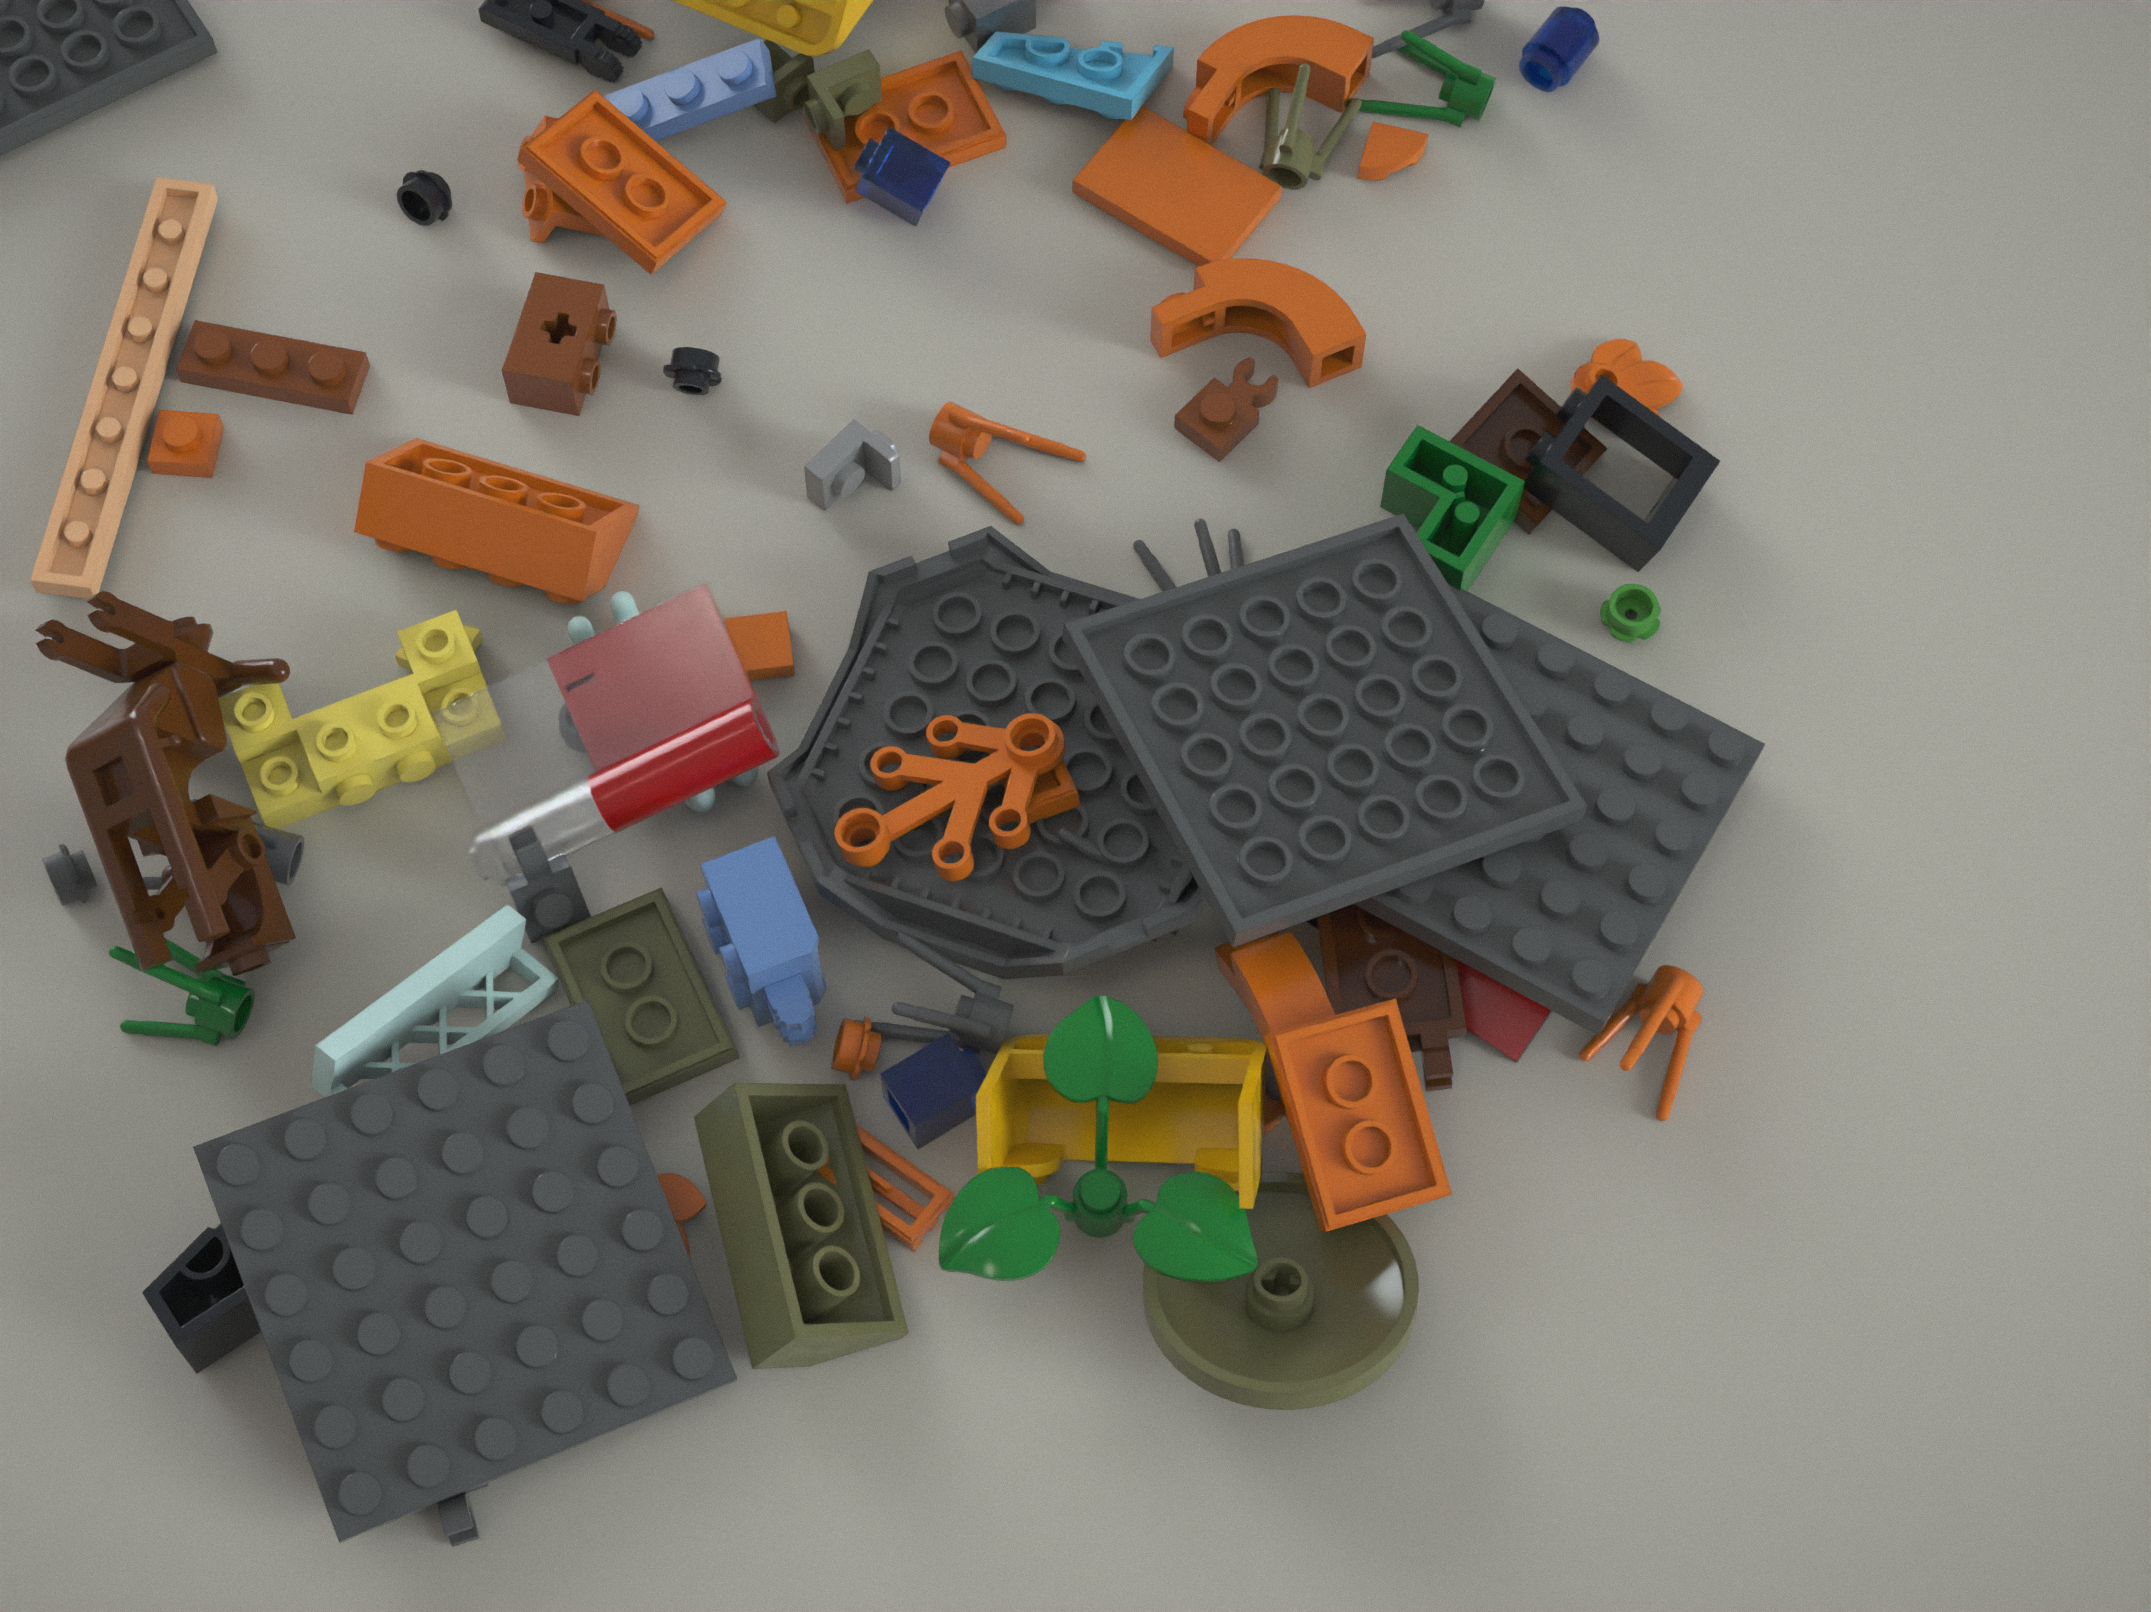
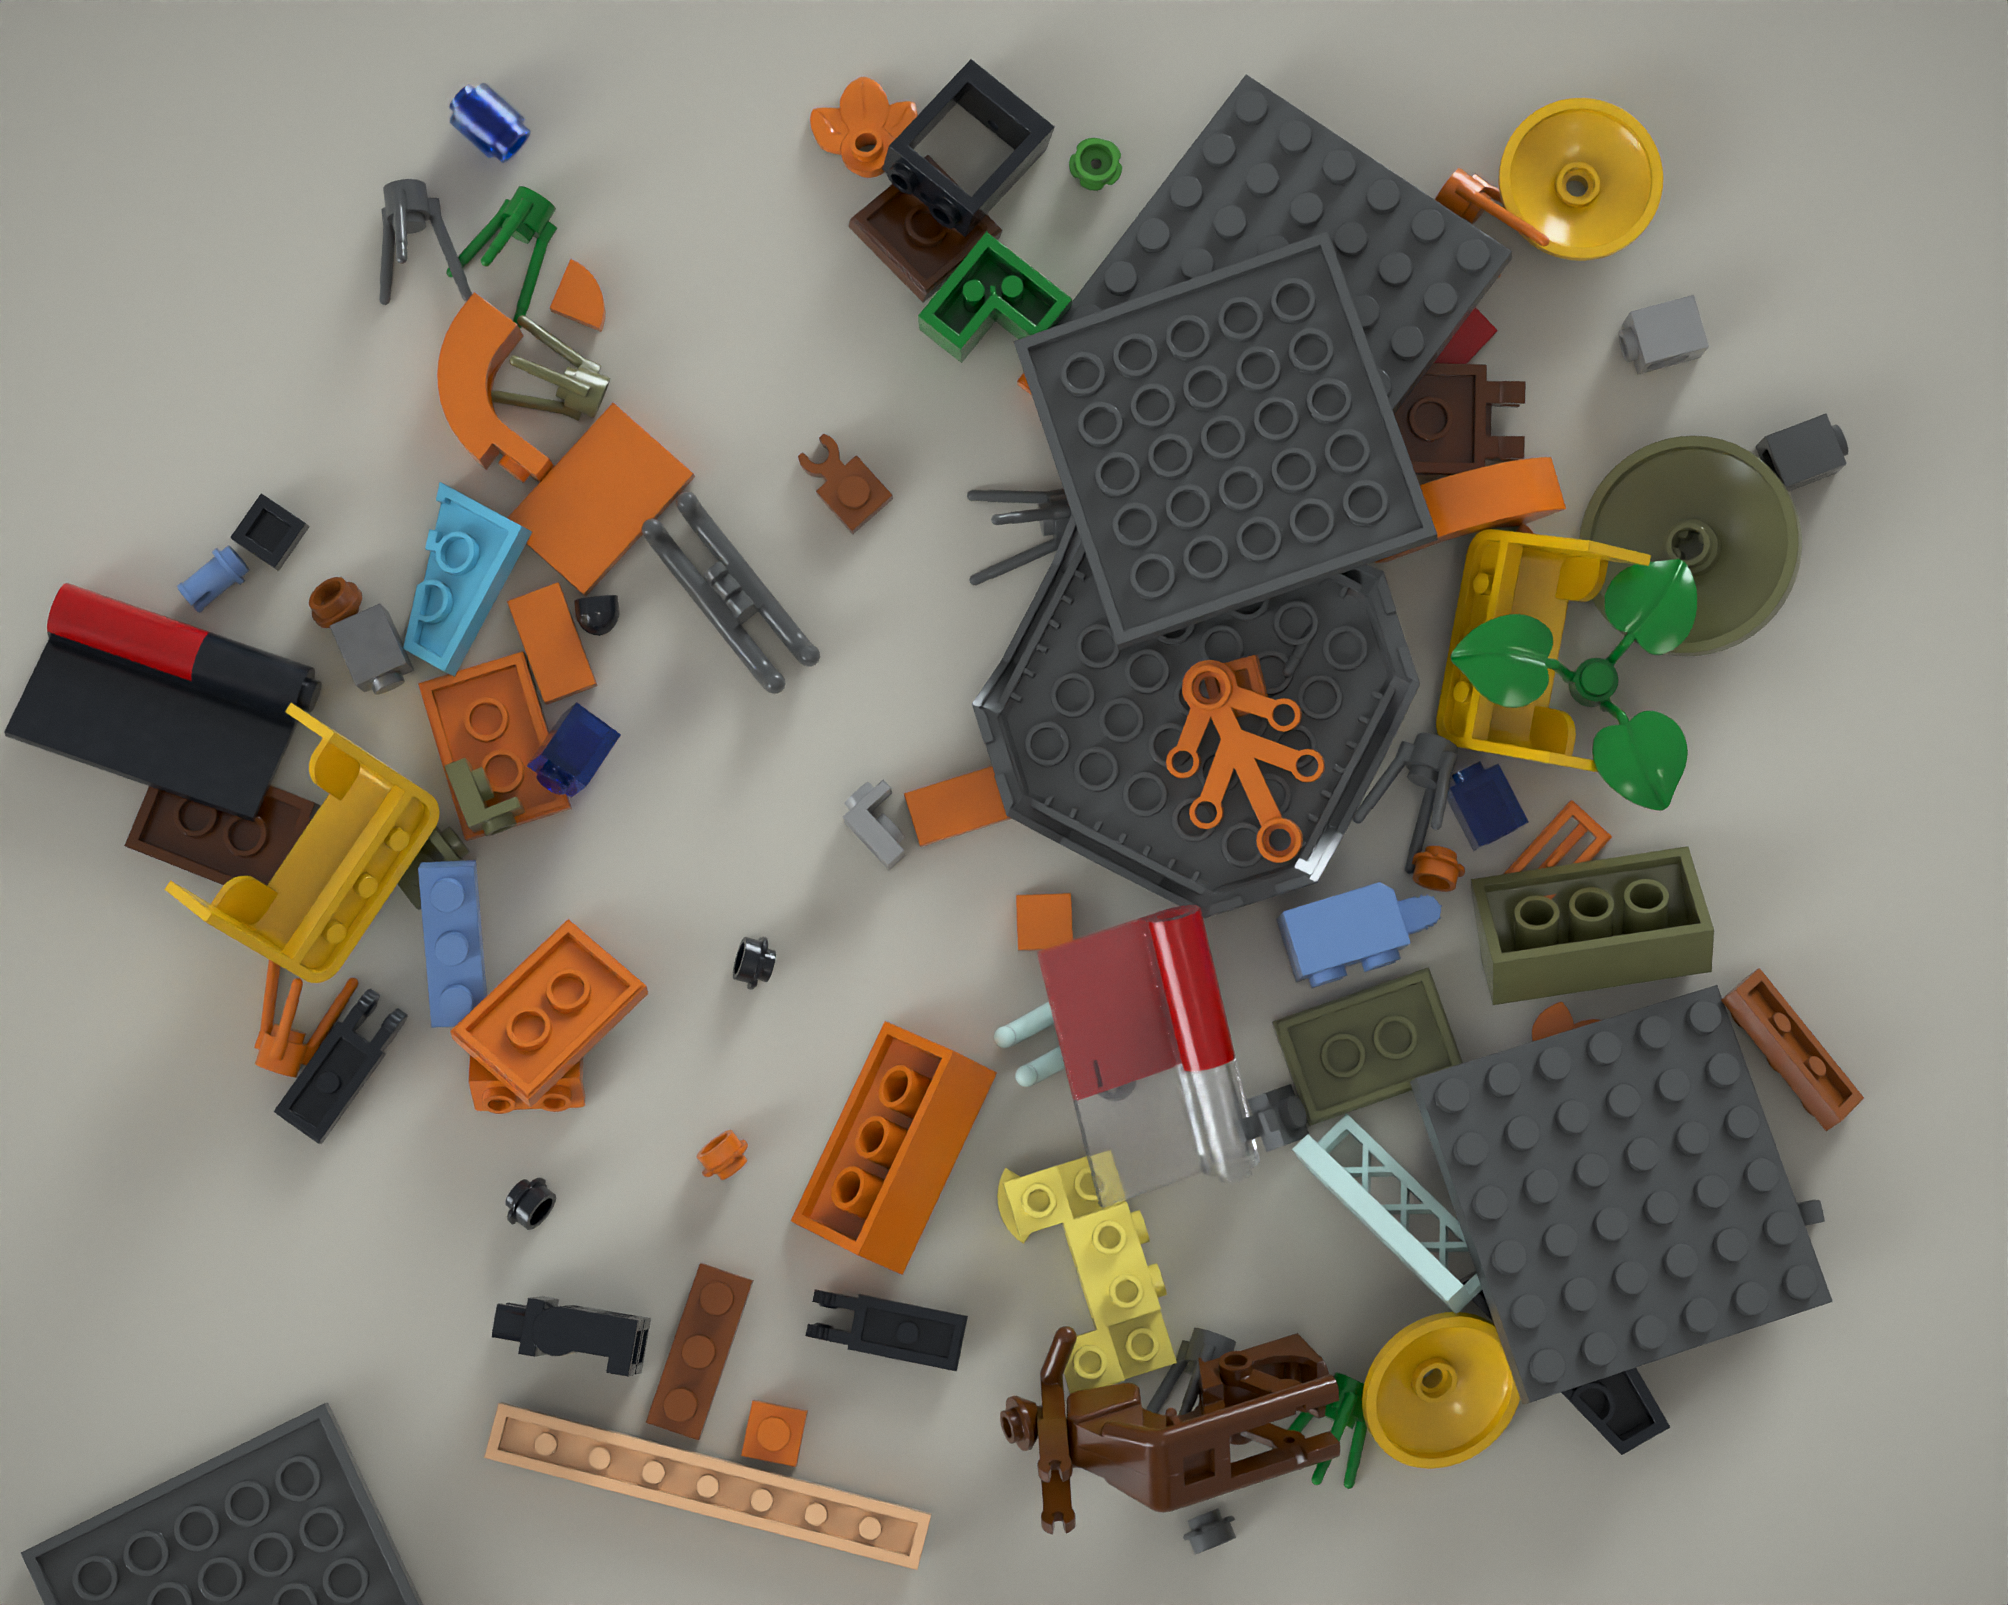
camera: 80 degrees left, 20 degrees up
(204, 1073) = (1454, 1408): none -> yellow dish
(283, 251) = (569, 1329): none -> black hips
(296, 540) = (894, 1330): none -> black hinge
(481, 363) = (723, 1155): none -> orange plate
(558, 344) = (681, 1085): dark orange brick -> none
(662, 1481) = (1792, 1049): none -> dark orange plate
(875, 534) = (956, 806): none -> orange tile
(968, 435) = (851, 721): orange plant -> none
(1018, 163) = (552, 643): none -> orange tile
(1053, 195) = (597, 614): none -> black hinge
(1092, 312) = (730, 593): none -> dark grey piece
(1268, 302) = (751, 413): orange arch -> none
(1357, 1115) = (1562, 462): orange tile -> none
(1419, 1425) = (1804, 452): none -> dark grey brick
(1541, 1243) = (1663, 335): none -> light grey brick
(1737, 1087) = (1602, 151): none -> yellow dish

